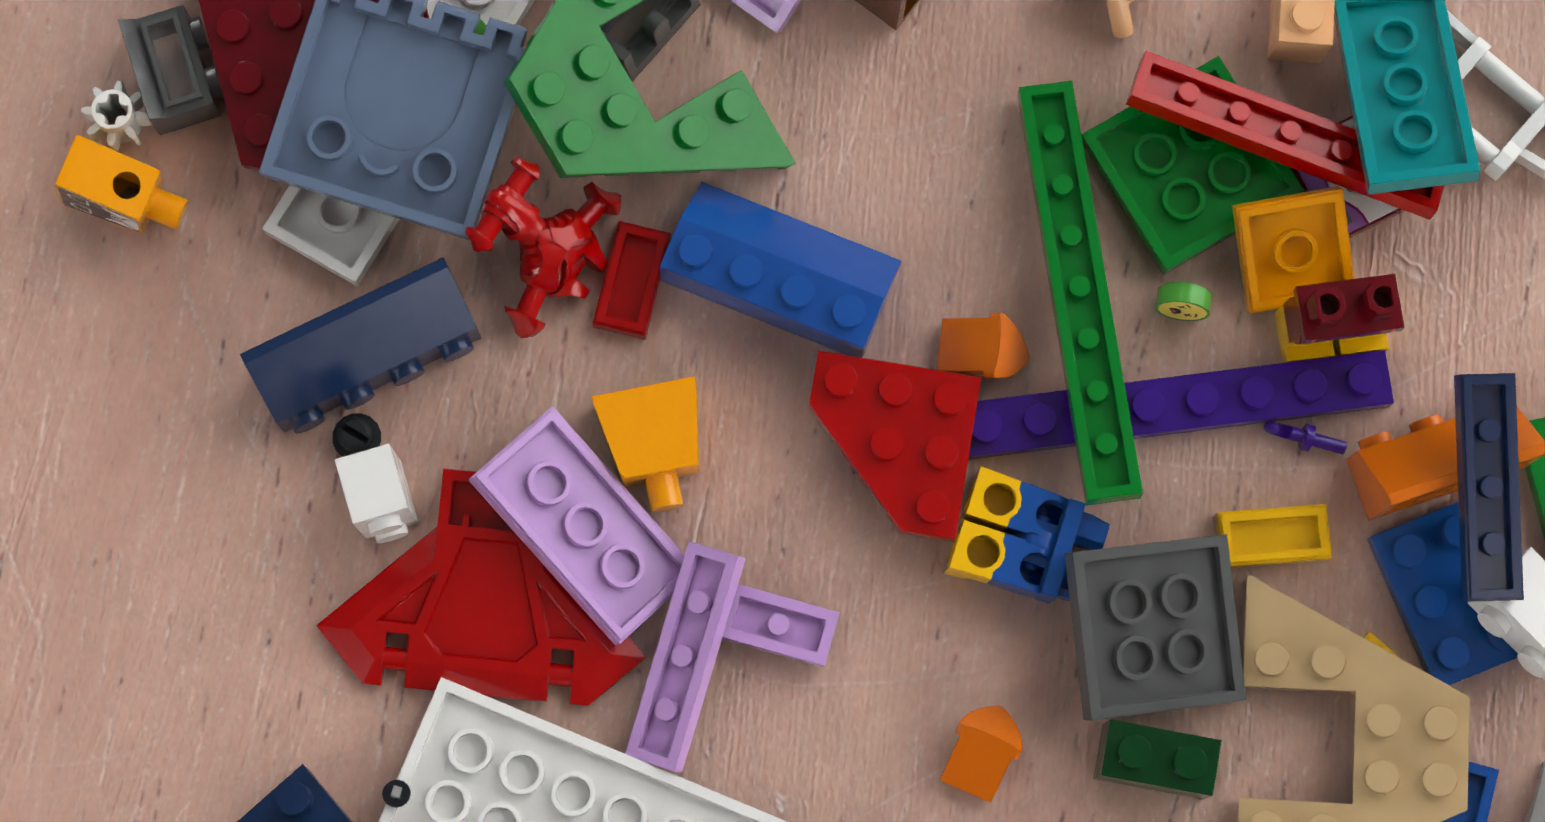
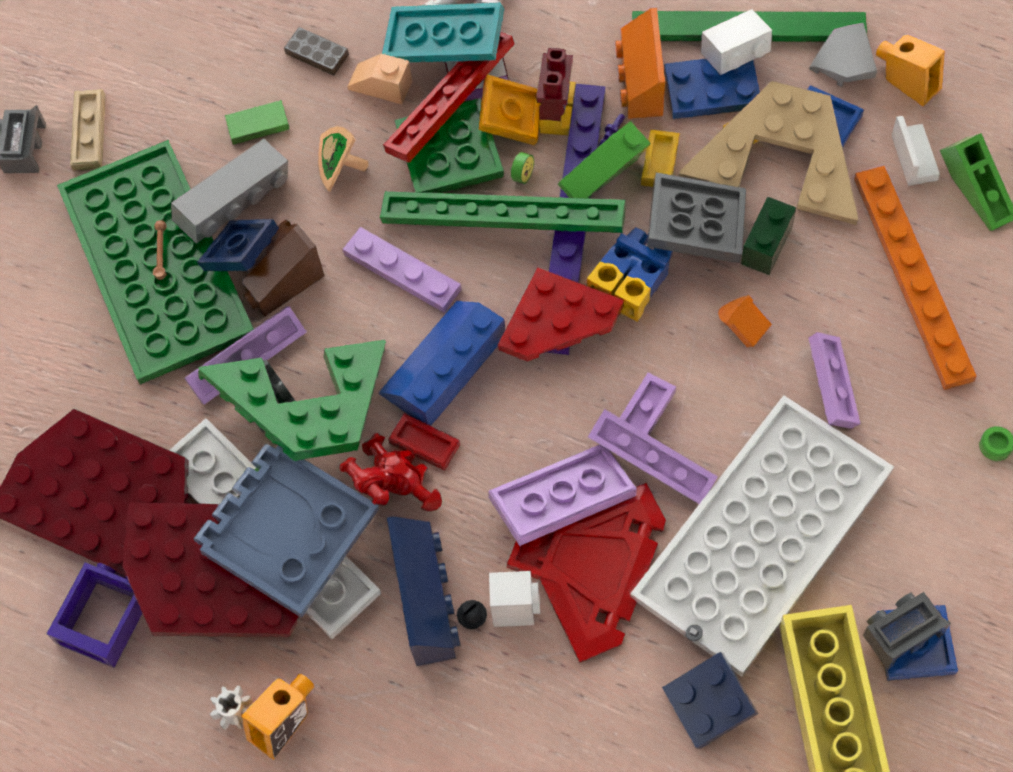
camera: 65 degrees left, 15 degrees down
(172, 69) = (212, 666): dark grey window -> none
(653, 437) = (520, 446): light orange torso -> none
(937, 153) = (402, 269): none -> lavender plate
(982, 347) = (517, 270): orange tile -> none
(1217, 440) = (605, 162): none -> bright green slope
(1488, 487) = (668, 36): dark blue tile -> none

